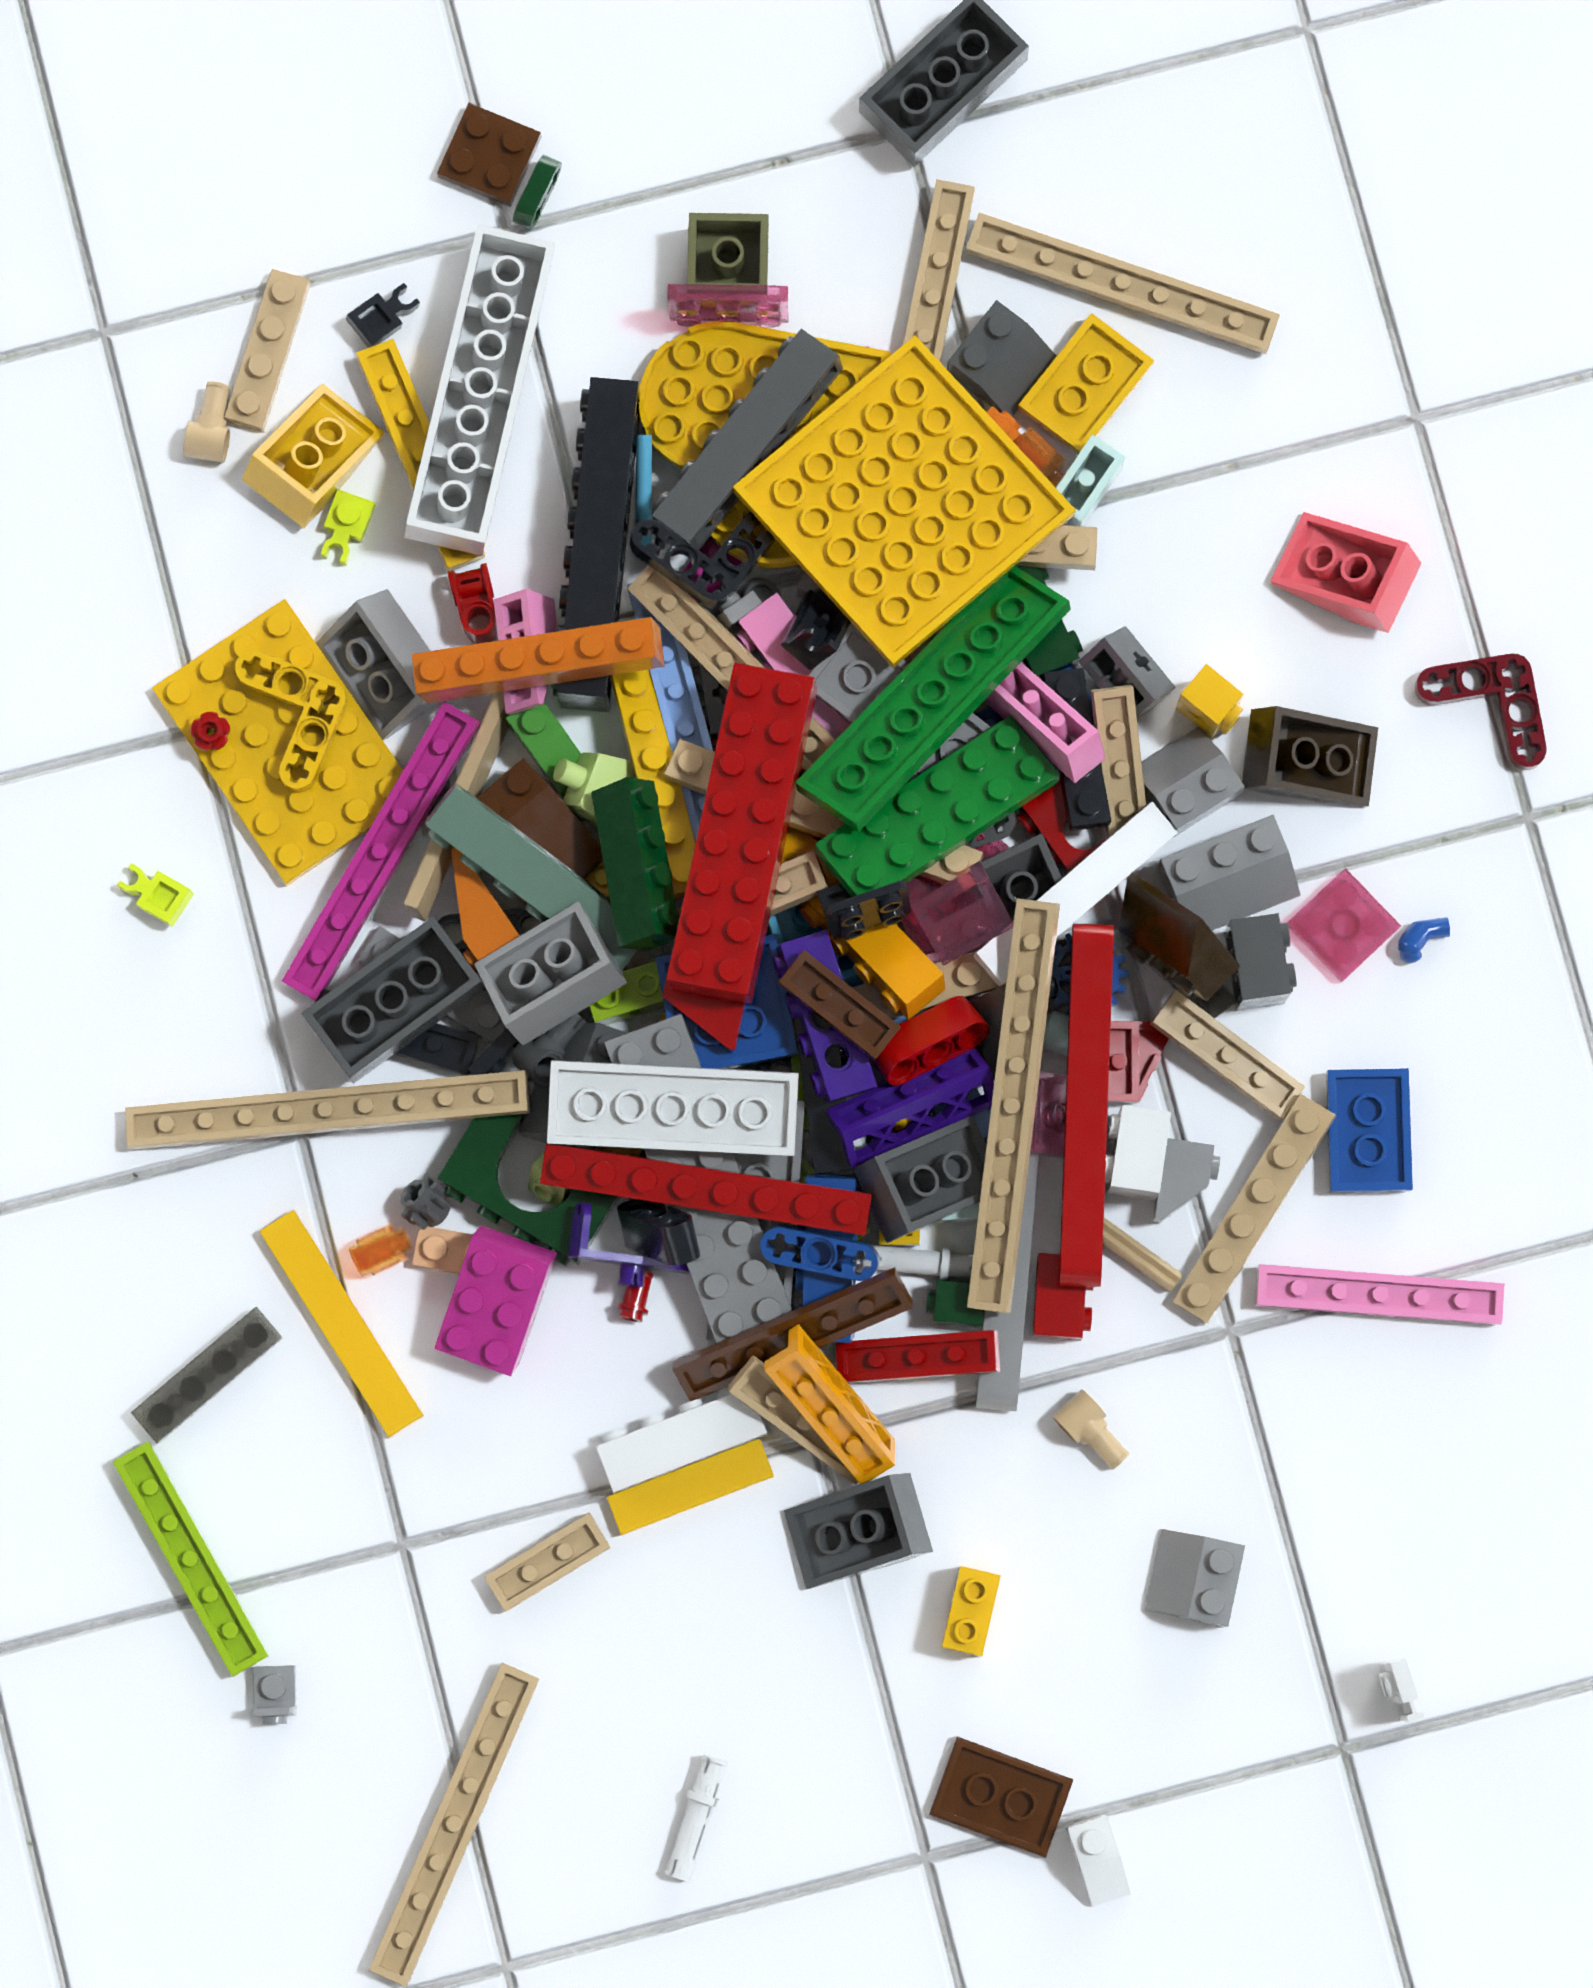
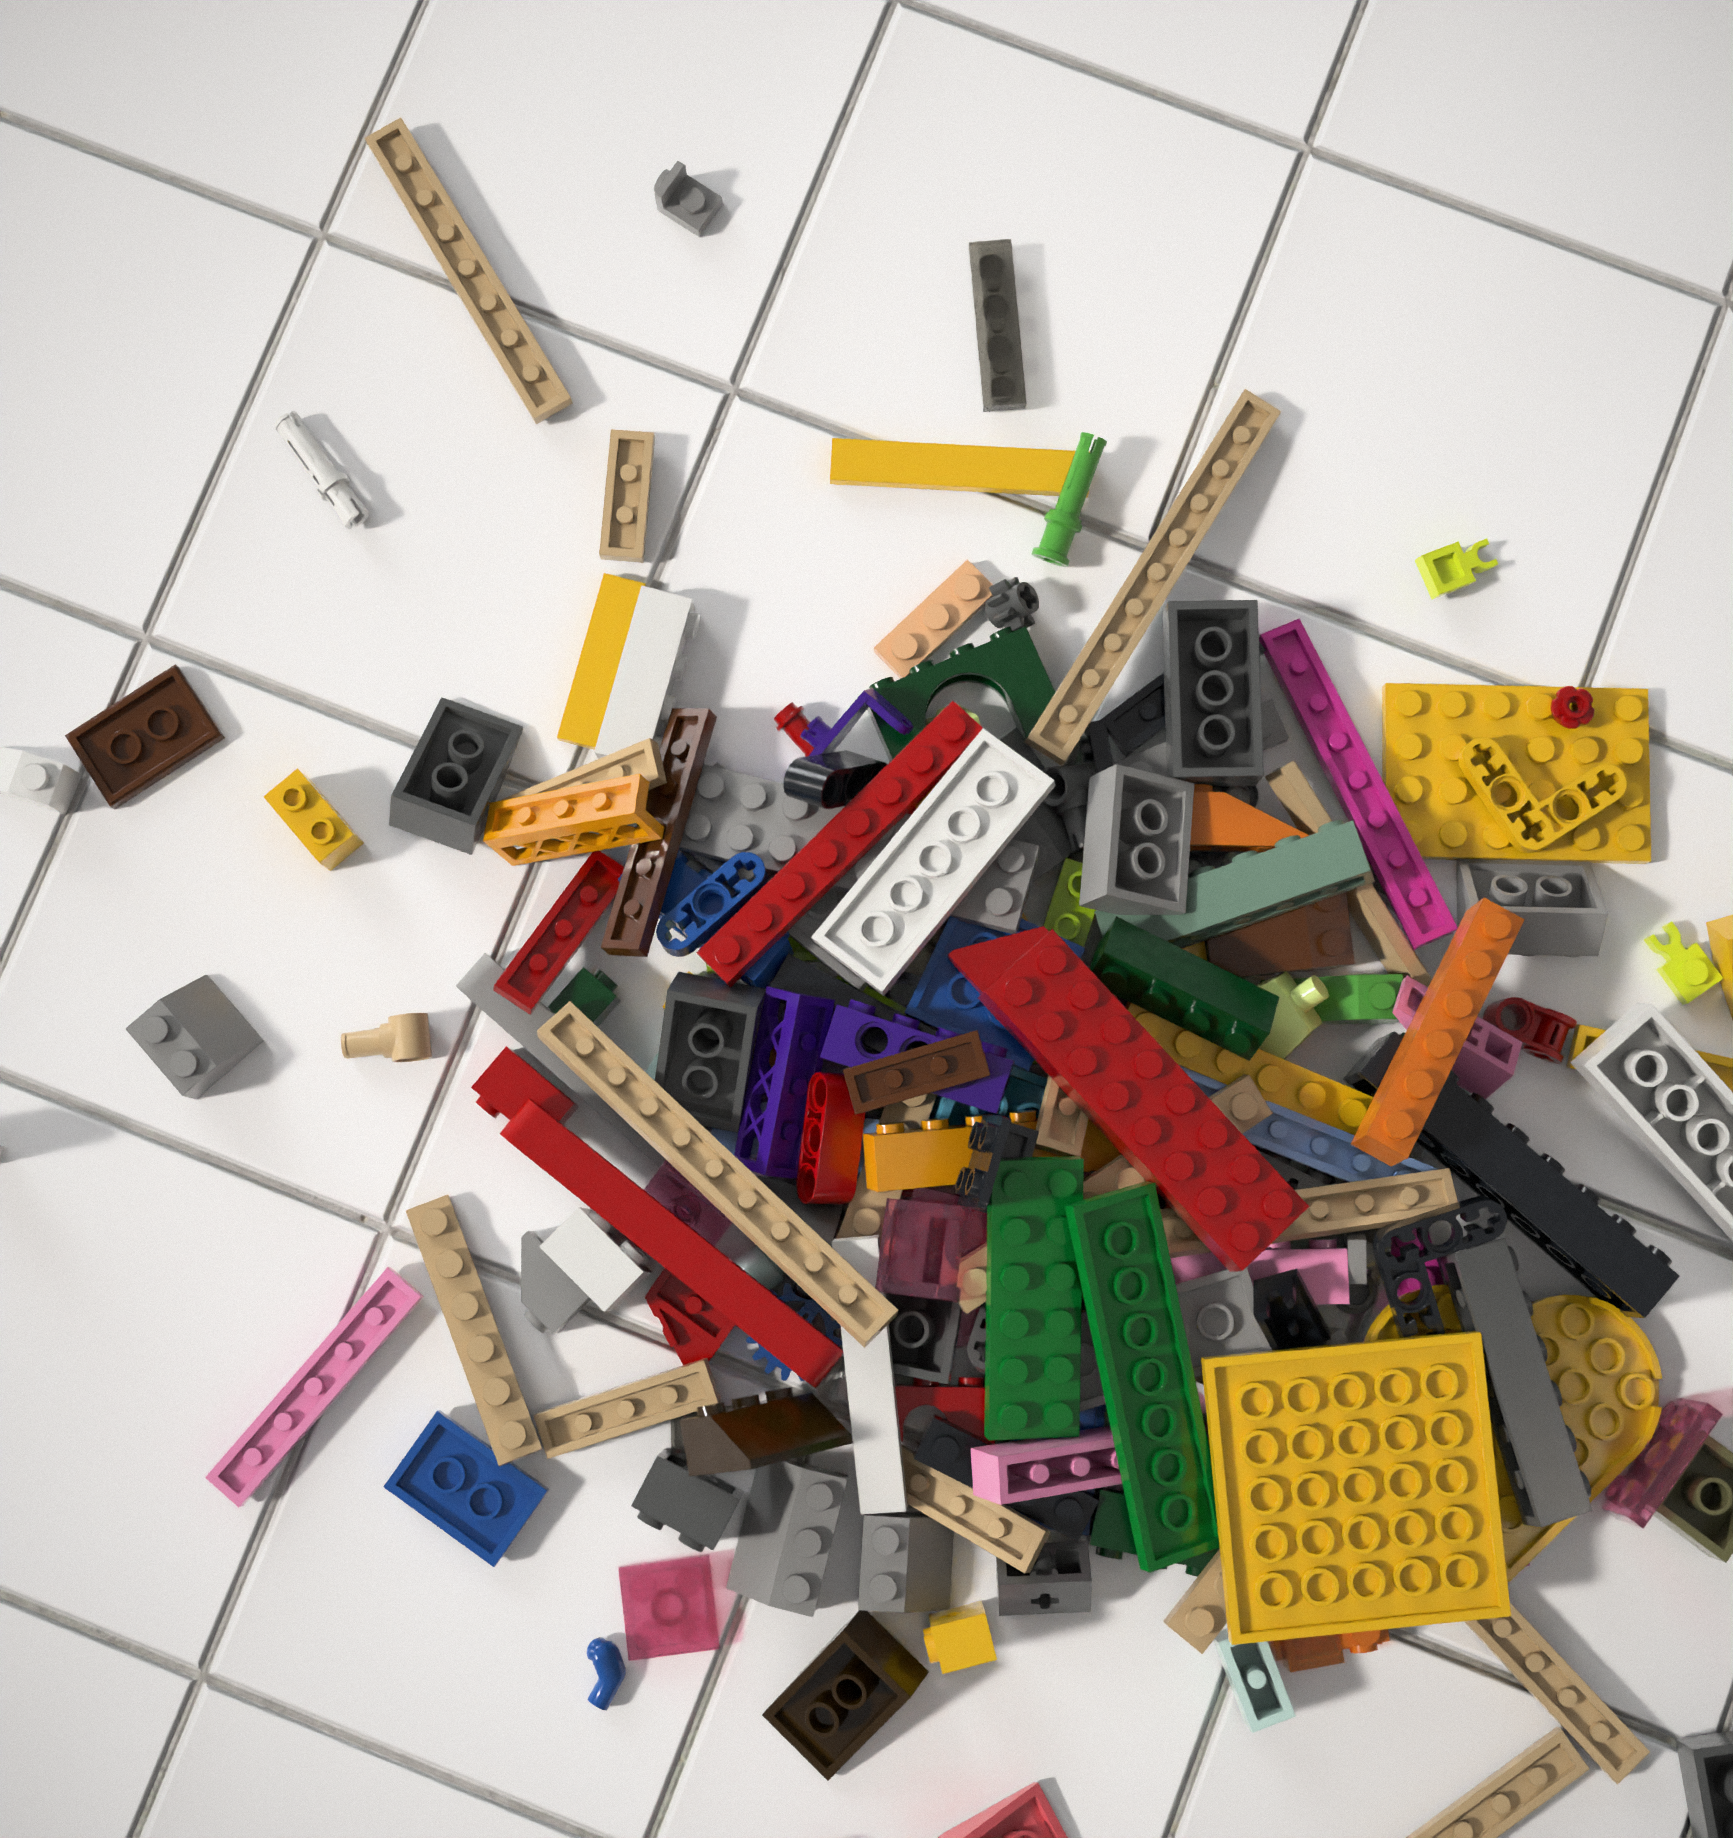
camera: 125 degrees right, 0 degrees up
(191, 1559) = (850, 207): lime plate -> none
(329, 1211) = (1064, 519): none -> bright green pin
(380, 1250) = (999, 541): clear orange brick -> none
(495, 1300) = (881, 601): dark pink brick -> none
(644, 481) = (1540, 1260): medium azure bar -> none
(924, 1262) = (646, 999): white pin -> none
(1001, 359) = (1428, 1684): dark grey slope -> none
(1086, 383) = (1350, 1748): yellow plate -> none
(1140, 1256) = (508, 1195): tan axle -> none

